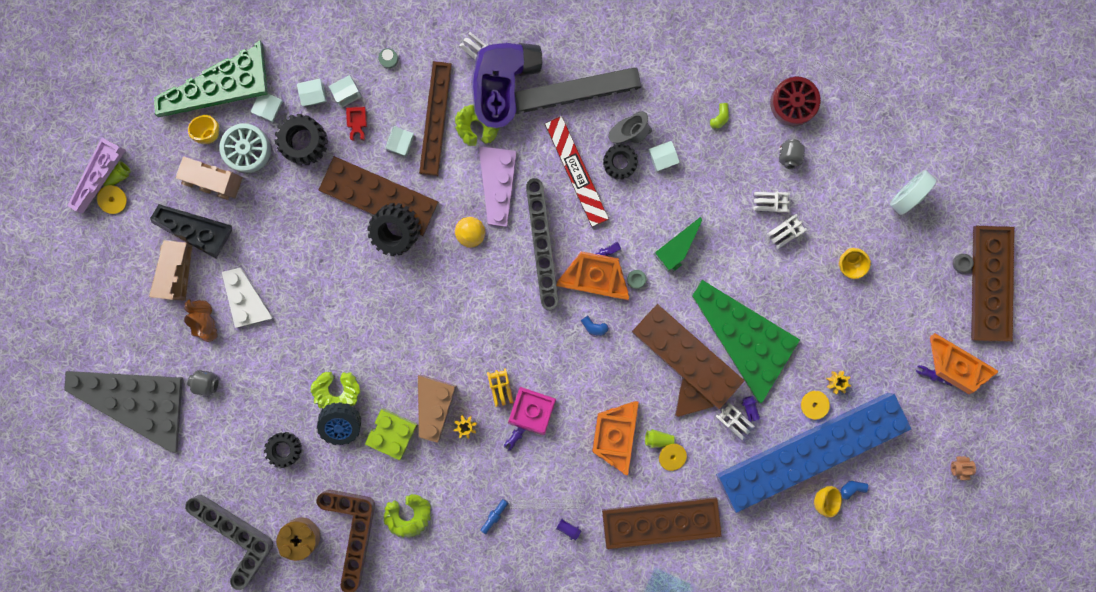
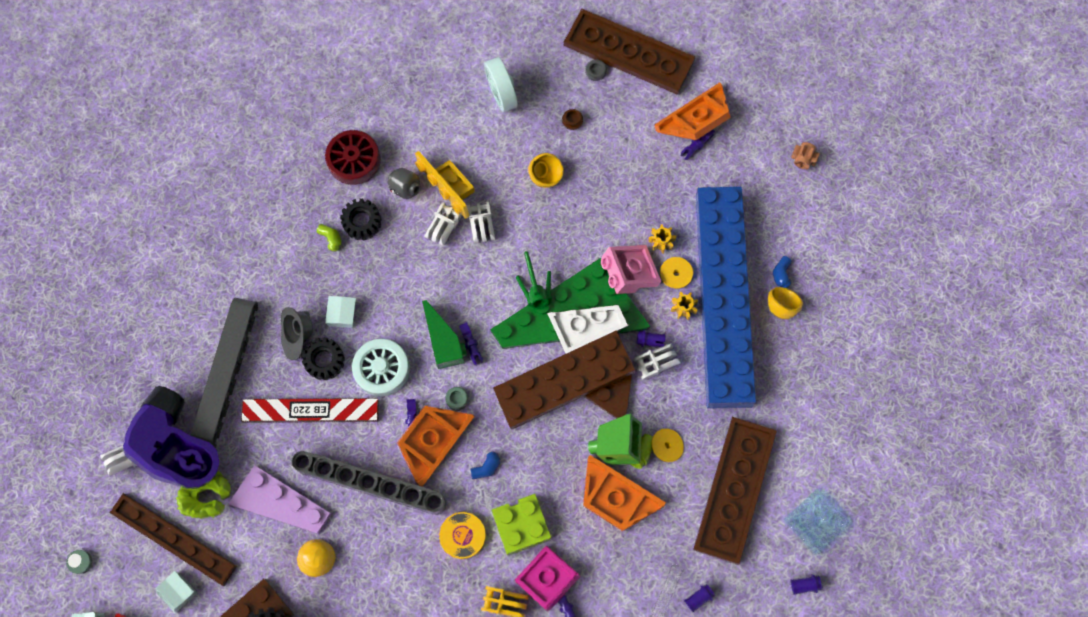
camera: 60 degrees left, 15 degrees down
(535, 332) = (462, 535): none -> yellow tile
(562, 373) = (521, 525): none -> lime piece
(633, 209) = (381, 367): none -> light aqua wheel
(658, 420) = (618, 441): none -> bright green torso
(684, 270) = (471, 343): none -> dark purple piece
(738, 355) = (583, 326): none -> white wing
(745, 306) = (538, 296): none -> green plant
(750, 123) = (356, 208): none -> black tyre
(785, 425) = (688, 300): none -> yellow gear
(801, 368) = (630, 268): none -> bright pink plate
(810, 189) = (449, 180): none -> yellow bracket
(909, 263) = (572, 119): none -> reddish brown plate

